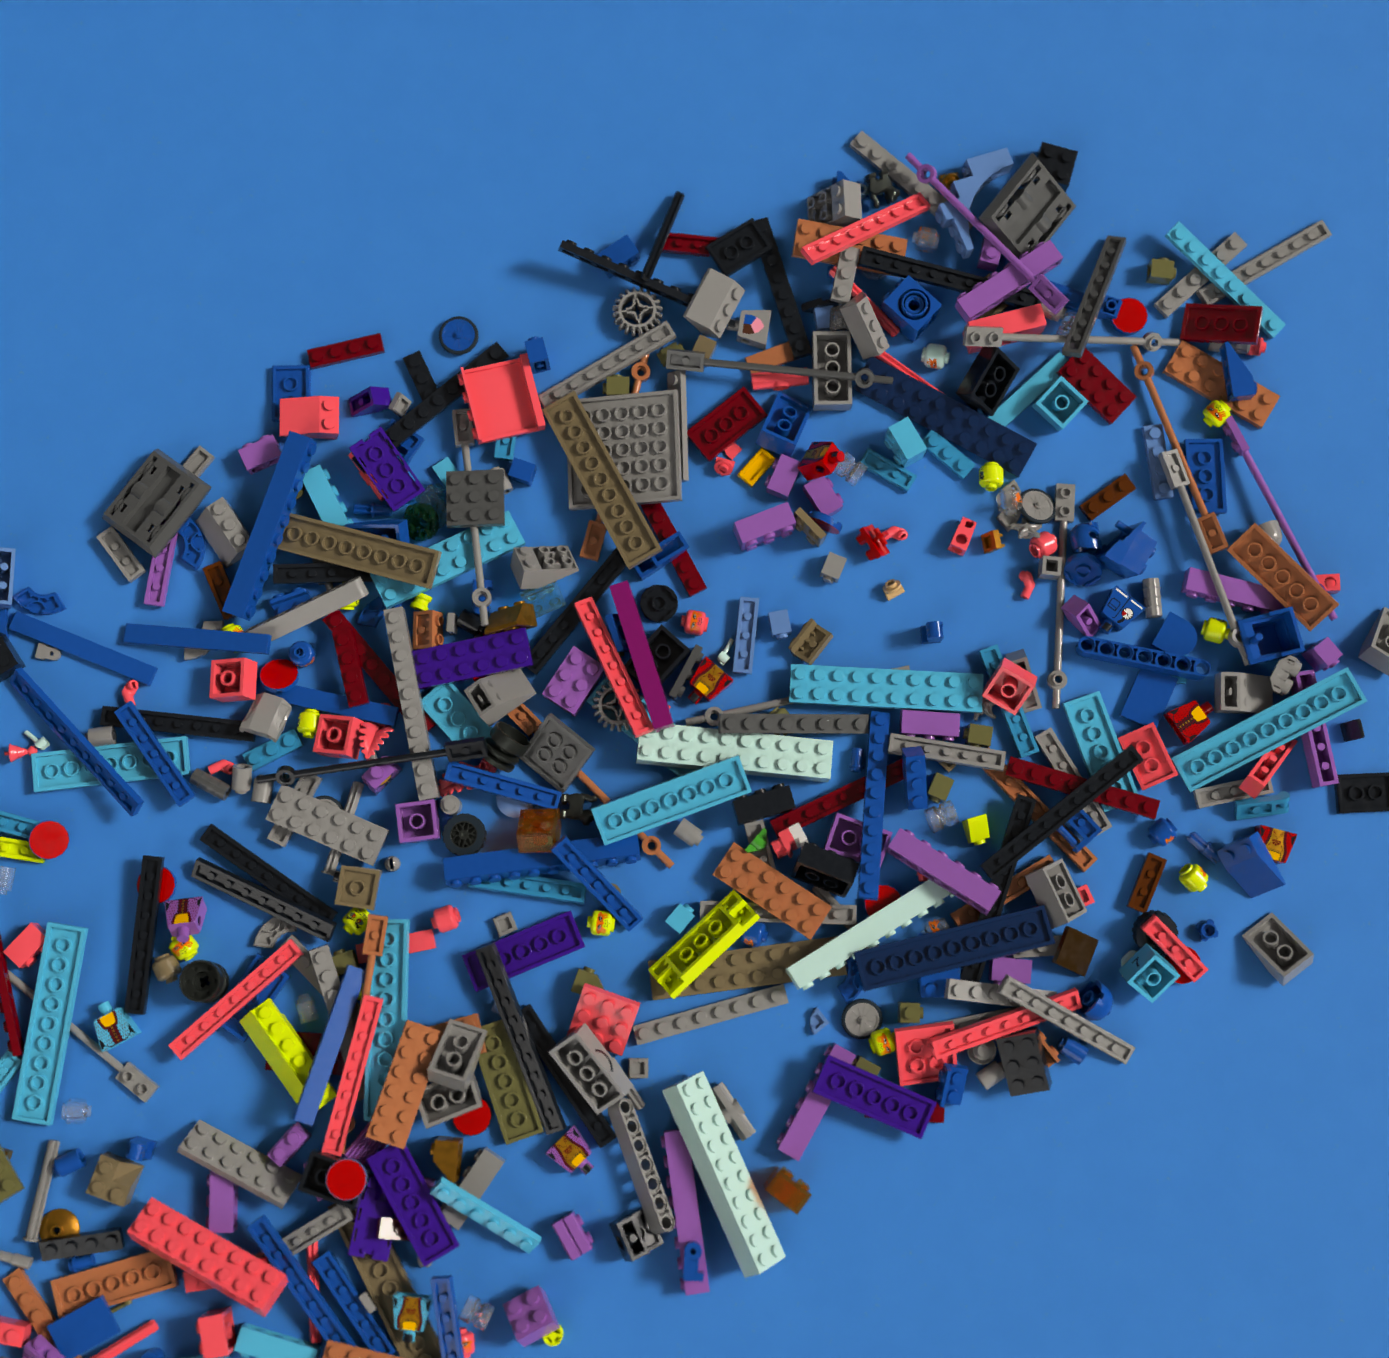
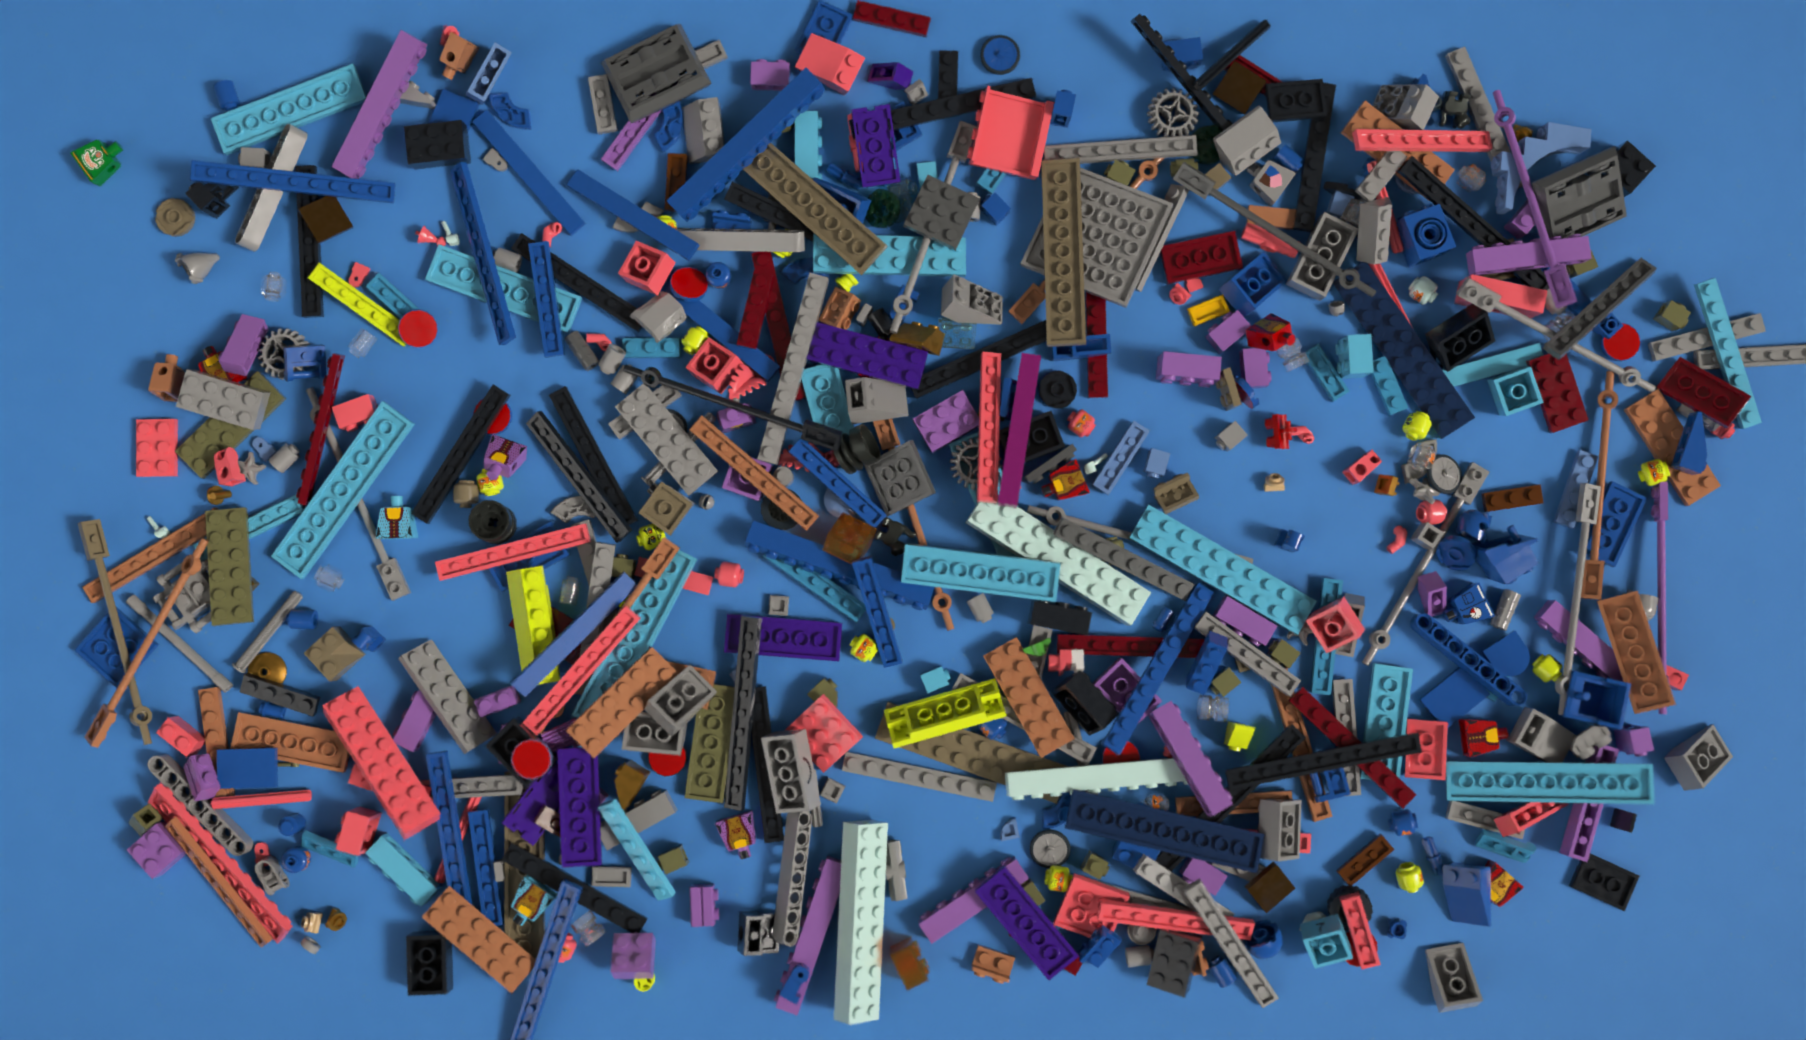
camera: 30 degrees right, 5 degrees up
(422, 814) = (754, 472): none -> nougat tile
(463, 1282) = (589, 897): none -> black plate
(475, 1253) = (611, 876): none -> light grey tile
(524, 1207) = (673, 859): none -> olive brick
(681, 326) = (1206, 148): none -> clear green tile
(684, 260) = (1239, 87): none -> dark brown tile
(759, 301) = (1289, 159): none -> blue brick
(863, 1151) = (992, 964): none -> nougat bracket
(868, 409) = (1336, 308): none -> light grey hinge
(1058, 272) = (1577, 269): none -> olive brick

